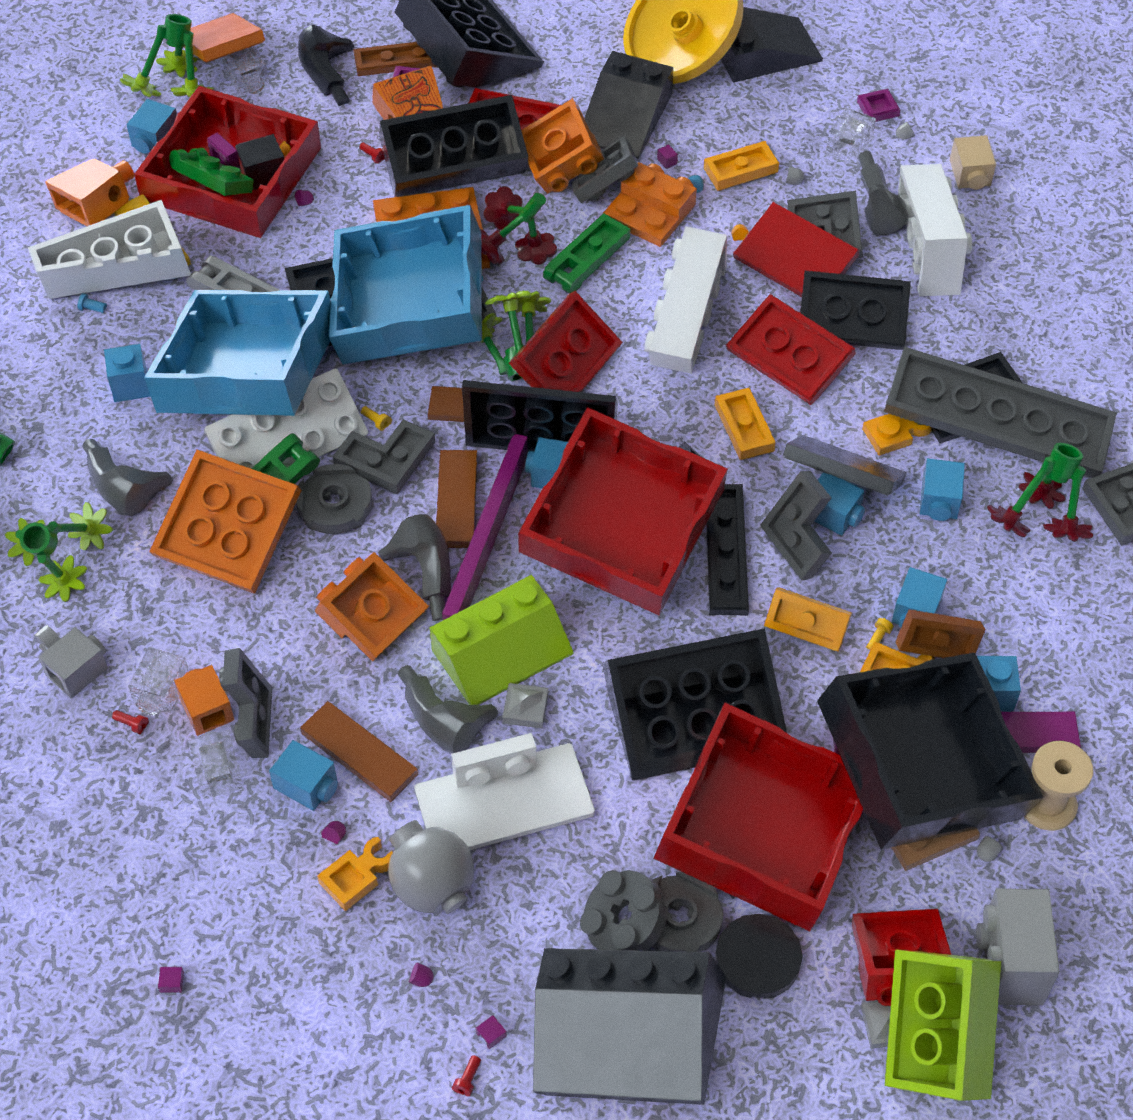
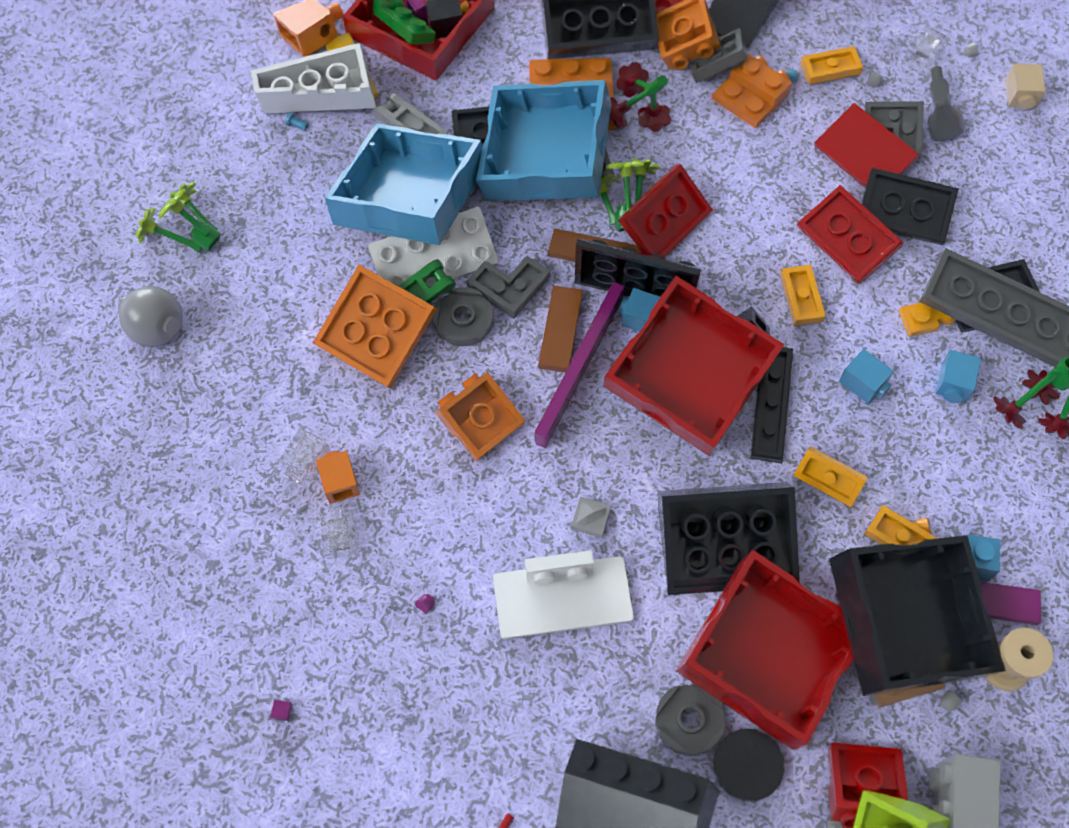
camera: 10 degrees right, 10 degrees up
(42, 541) = (226, 328): lime plant -> none
(71, 660) = (239, 427): light grey brick -> none
(122, 486) = (299, 284): dark grey animal -> none
(126, 372) = (314, 185): dark azure brick -> none
(137, 723) = (284, 487): red piece -> none
(254, 699) = (376, 481): dark grey plate -> none
(303, 197) = (474, 50): magenta piece -> none
(304, 775) = (407, 554): dark azure brick -> none
(353, 876) = (433, 647): light orange plate -> none
(359, 751) = (454, 537): dark orange tile -> none
(377, 154) = (538, 21): red piece -> none
(381, 421) = (510, 253): yellow piece -> none
(421, 975) = (476, 737): magenta piece -> none
(424, 540) = (531, 368): dark grey animal -> none
(430, 868) = (495, 653): light grey brick -> none
(447, 723) = (525, 525): dark grey animal -> none
(491, 1031) = (525, 796): magenta piece -> none
(500, 641) = (579, 460): lime slope -> none
(587, 253) = (695, 127): green plate -> none
(607, 900) = (663, 712): dark grey plate -> none
(667, 156) = (772, 49): magenta piece -> none
(687, 303) = (772, 180): white wedge -> none
(739, 232) = (822, 124): light orange piece -> none
(791, 521) = (828, 394): dark grey plate -> none
(844, 464) = (880, 345): black tile -> none
(879, 105) = (953, 24): magenta tile -> none
(883, 626) = (891, 490): yellow piece -> none
(919, 592) = (924, 474): dark azure brick -> none
(934, 229) = (985, 142): white wedge -> none
(939, 634) = (938, 509): dark orange plate -> none

